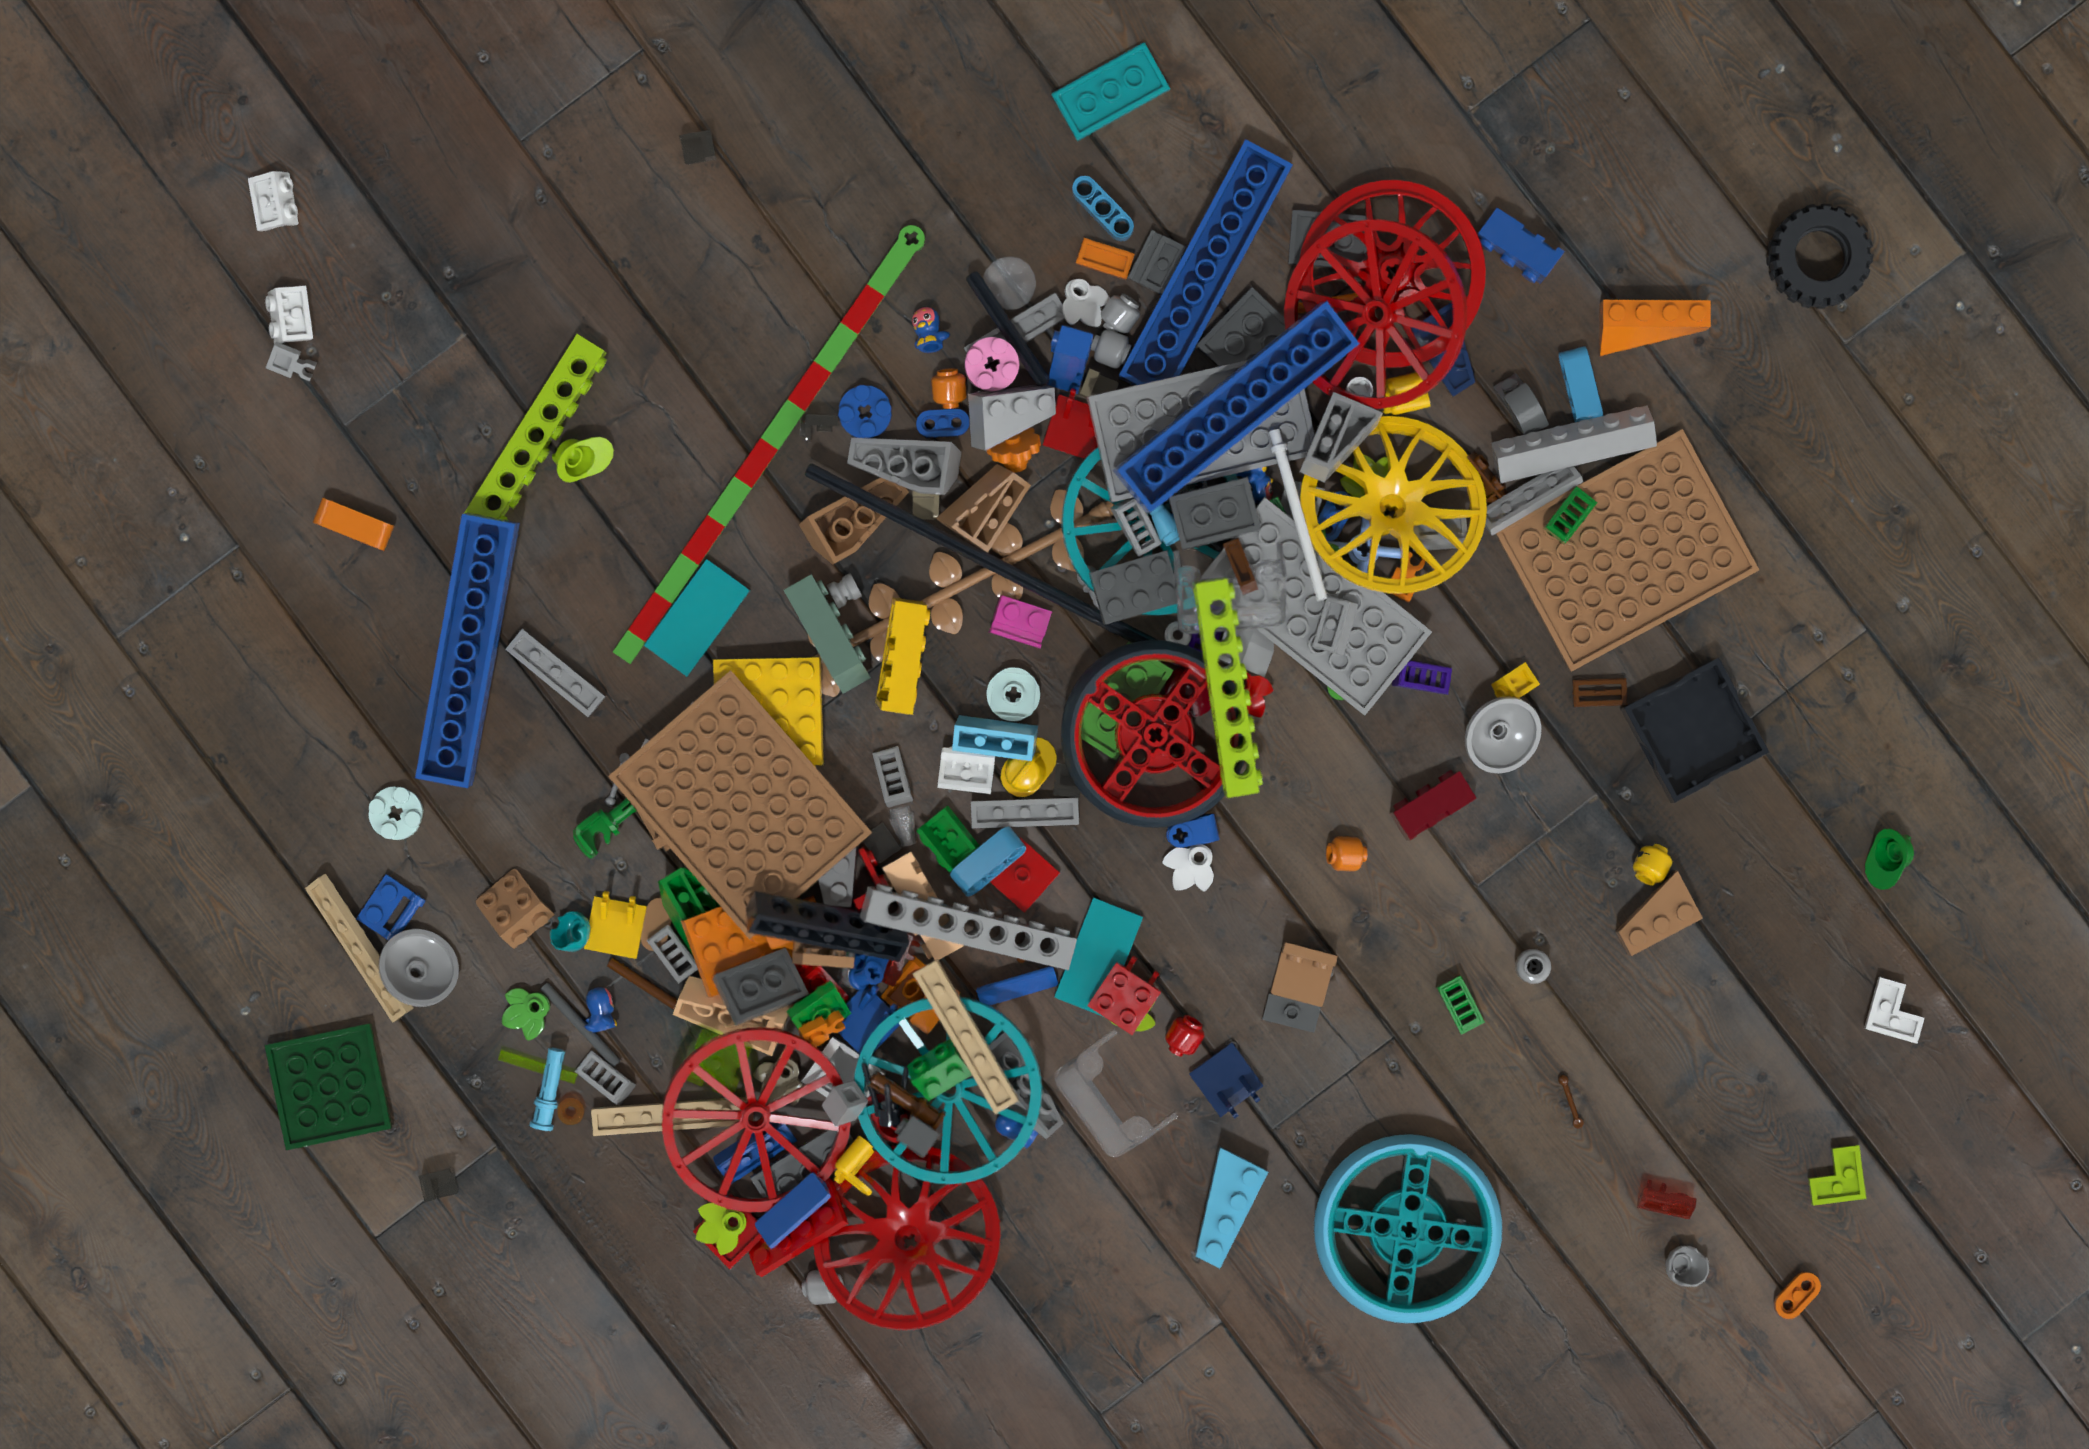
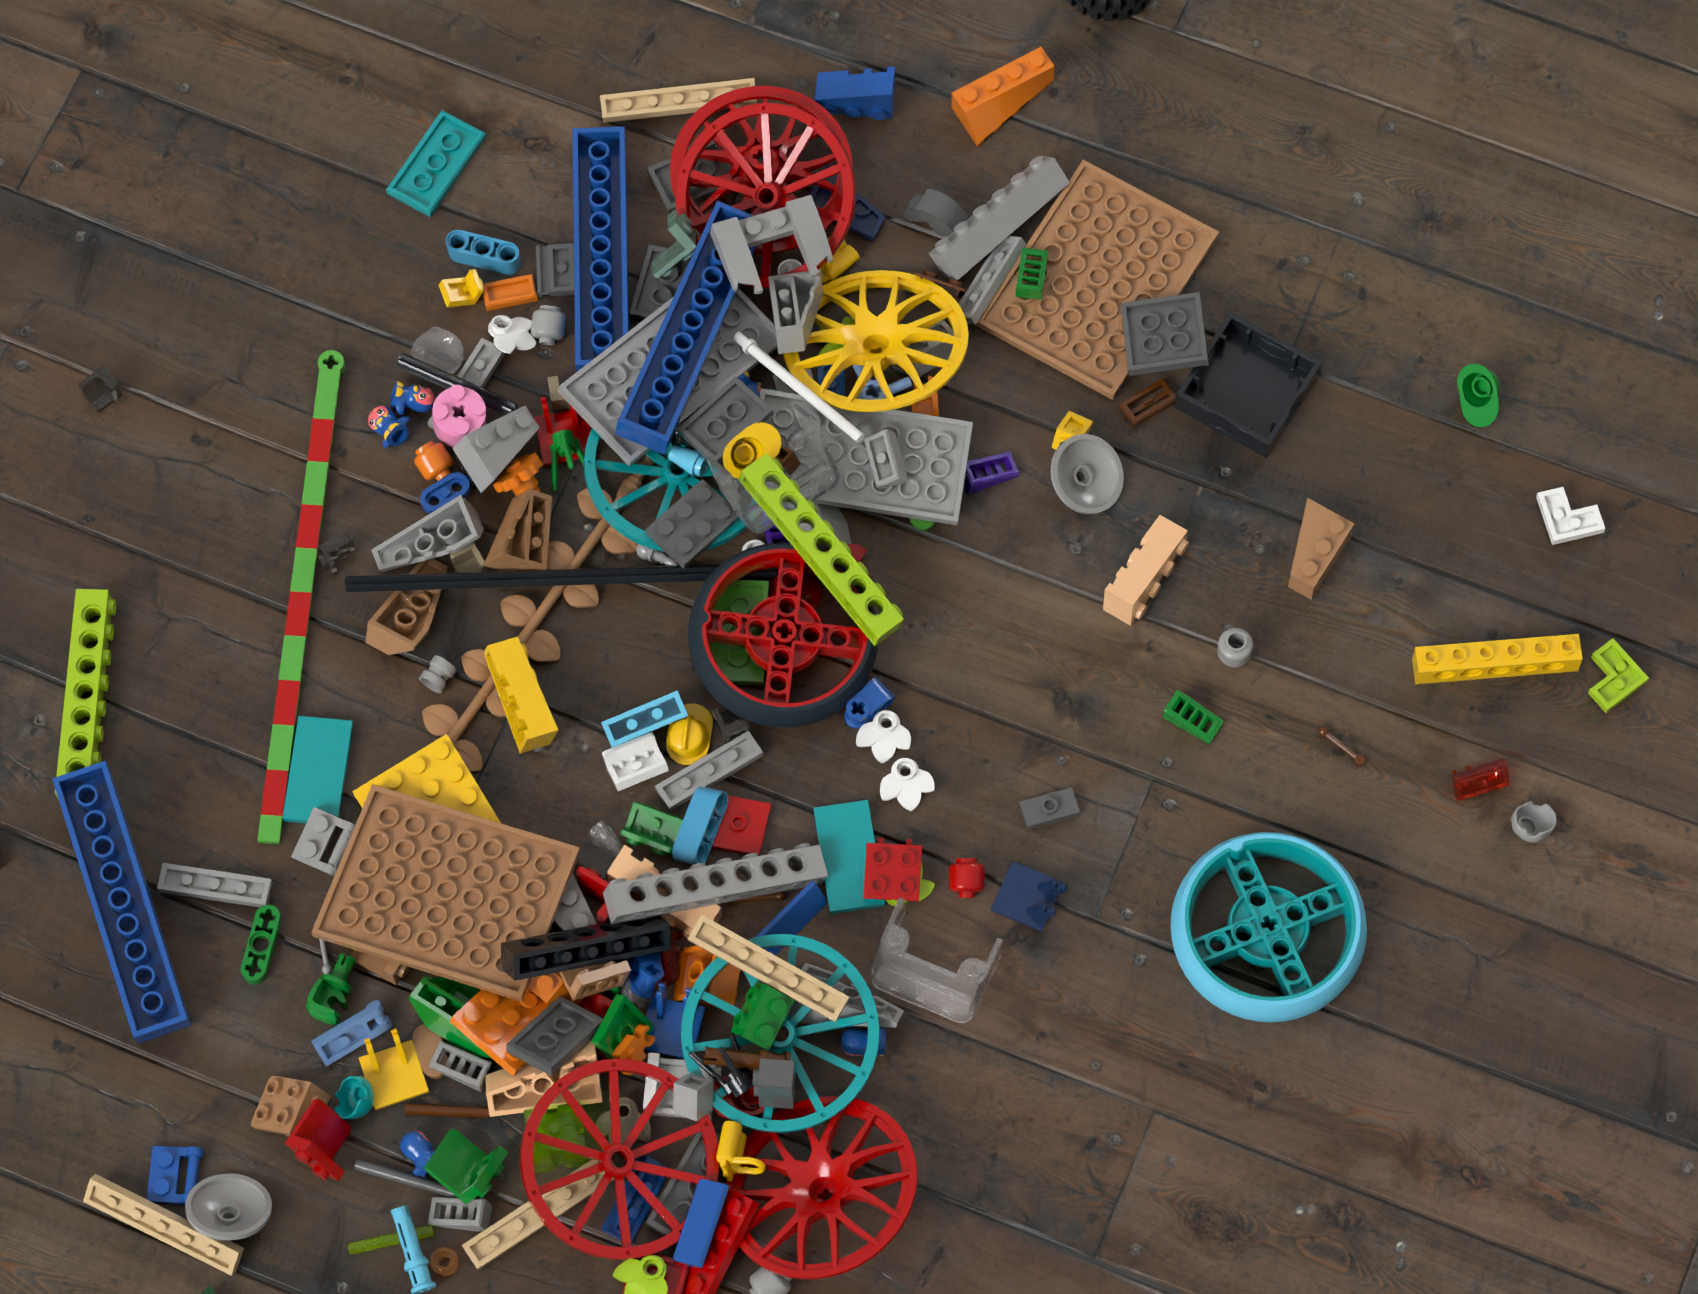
camera: 30 degrees left, 20 degrees down
(381, 808) = (136, 1103): light aqua plate -> none
(520, 953) = (318, 1139): none -> red bracket
(523, 1015) = (351, 1200): bright green plate -> none
(556, 747) = (263, 965): none -> green beam
(582, 458) = (138, 690): lime piece -> none
(600, 873) = (351, 1033): none -> medium blue plate
(629, 1047) = (464, 1166): none -> green bracket
(663, 680) = (317, 837): none -> light grey plate
(827, 634) = (444, 710): sand green wedge -> none
(865, 427) = (371, 507): blue plate -> none
(896, 799) = (584, 819): light grey slope -> none
(967, 317) = (414, 397): none -> blue animal
(1020, 621) = (609, 616): dark pink plate -> none
(1023, 706) = (646, 665): light aqua plate -> none
(1063, 234) = (462, 290): none -> yellow bracket
(1068, 441) = (564, 445): none -> green plant
(1070, 358) = (523, 371): blue wedge -> none
(1111, 348) = (556, 355): light grey head -> none
(1122, 520) = (668, 467): light grey slope -> none
(1181, 924) = (908, 787): none -> white plate
(1218, 559) = (750, 446): none -> yellow piece
(1229, 1200) = (1093, 991): medium azure wedge -> none
(1268, 318) = (683, 249): none -> sand green bracket
(1303, 974) = (1038, 764): medium nougat bracket -> none
(1346, 853) = (1013, 647): orange head -> none
(1353, 153) = (667, 100): none -> tan plate
(1386, 358) = (735, 237): none -> light grey wedge
(1432, 804) = (1062, 566): dark red wedge -> none
(1500, 850) = (1145, 569): none -> light nougat wedge
(1580, 384) = (973, 171): dark azure beam -> none
(1648, 646) = (1164, 333): none -> dark grey plate
(1652, 864) = (1283, 510): yellow head -> none
(1748, 1106) = (1497, 659): none -> yellow brick
(1799, 1297) = (1644, 794): orange plate -> none

